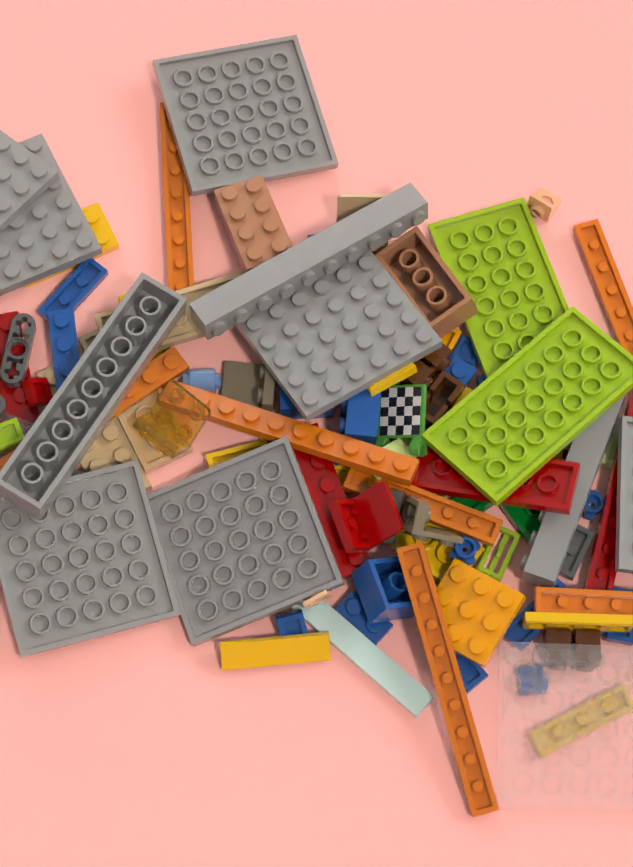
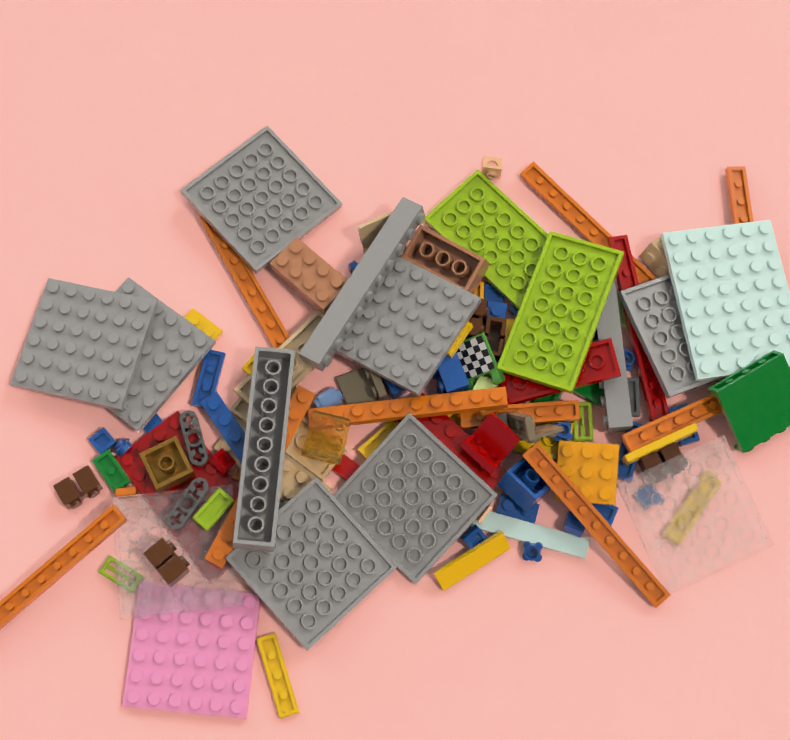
camera: 25 degrees left, 5 degrees up
(180, 468) = (346, 468): none -> red tile
(362, 674) = (532, 556): none -> blue plate
(420, 669) = (573, 525): none -> blue plate

